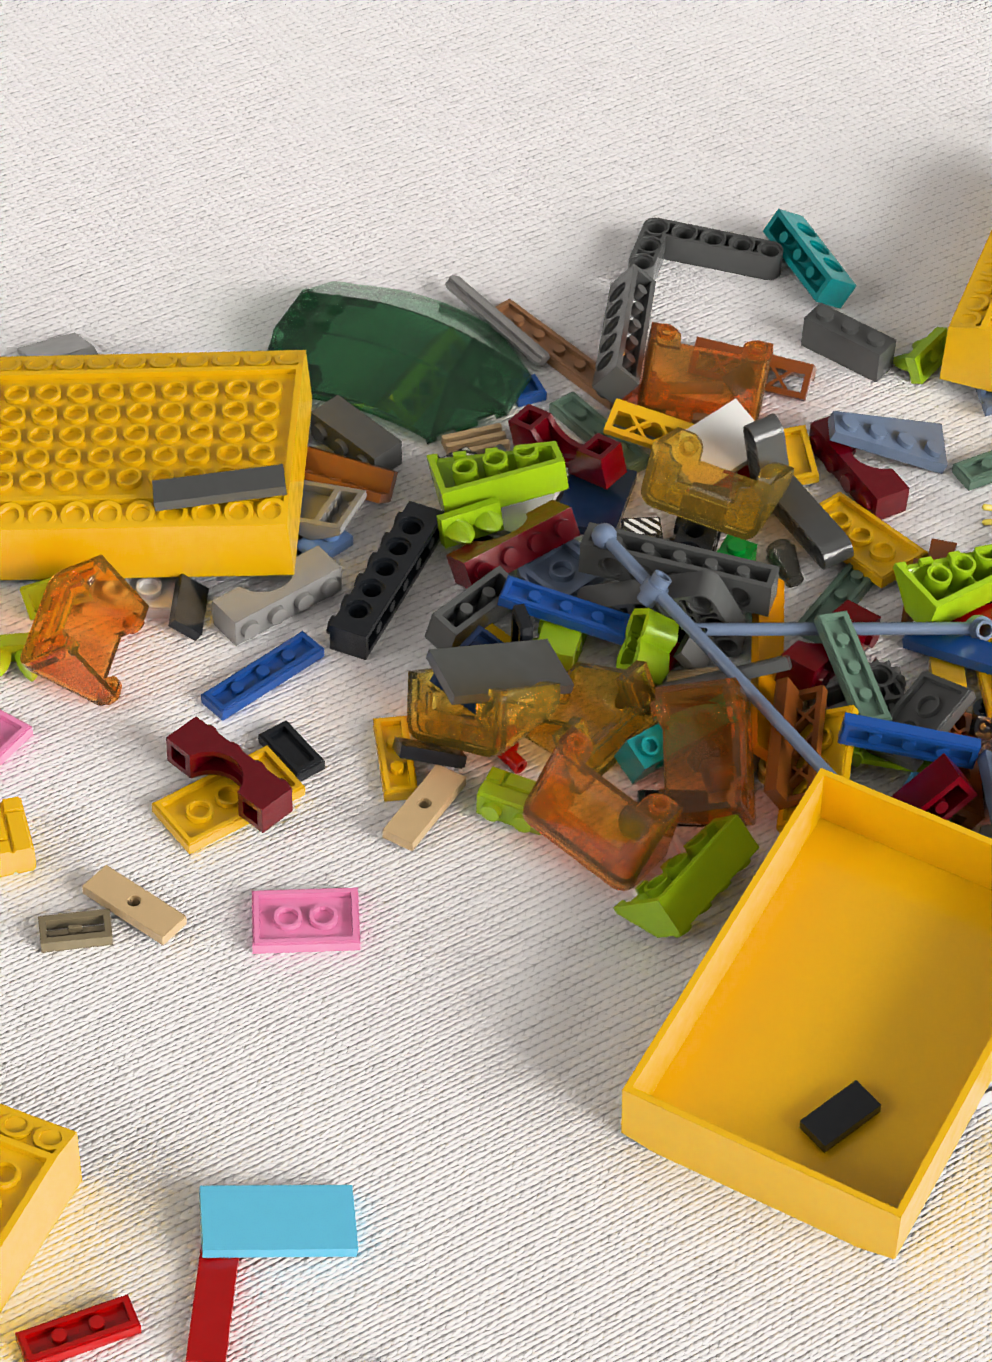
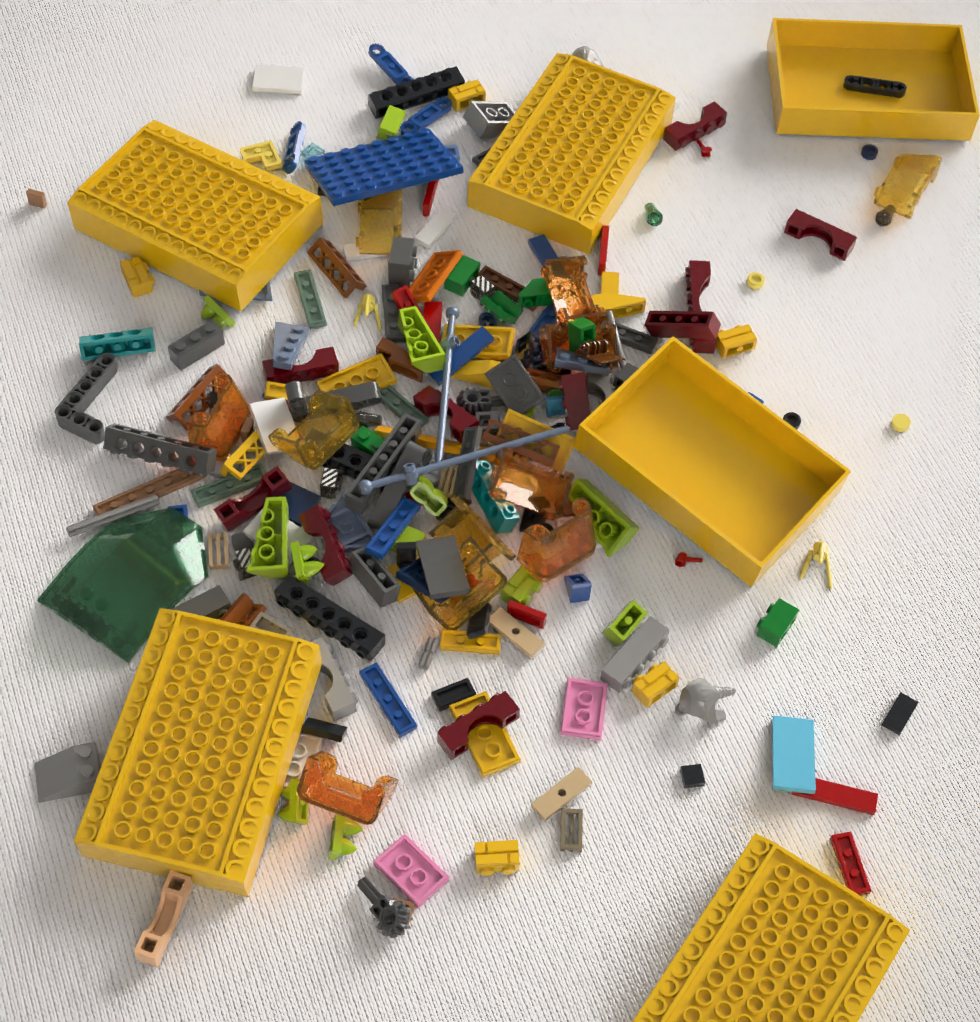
camera: 80 degrees left, 10 degrees up
(208, 1082) = (692, 776): none -> black tile
(219, 487) = (282, 675): dark grey tile -> none
(350, 707) = (427, 655): none -> light grey piece
(350, 1052) = (699, 700): none -> light grey piece
(371, 1003) = (654, 684): none -> yellow brick
(424, 969) = (635, 654): none -> light grey brick
(462, 814) = (526, 614): none -> red tile
(478, 940) = (624, 622): none -> lime brick
(539, 875) = (578, 587): none -> blue slope
(550, 1173) = (777, 622): none -> green brick
(649, 1020) = (682, 558): none -> red hand
(731, 1230) = (820, 553): none -> light yellow plant
(840, 1116) = (764, 488): black tile -> none
(851, 664) = (476, 403): sand green tile -> none
(908, 740) = (542, 390): blue tile -> none
(952, 256) = (137, 276): none -> yellow brick

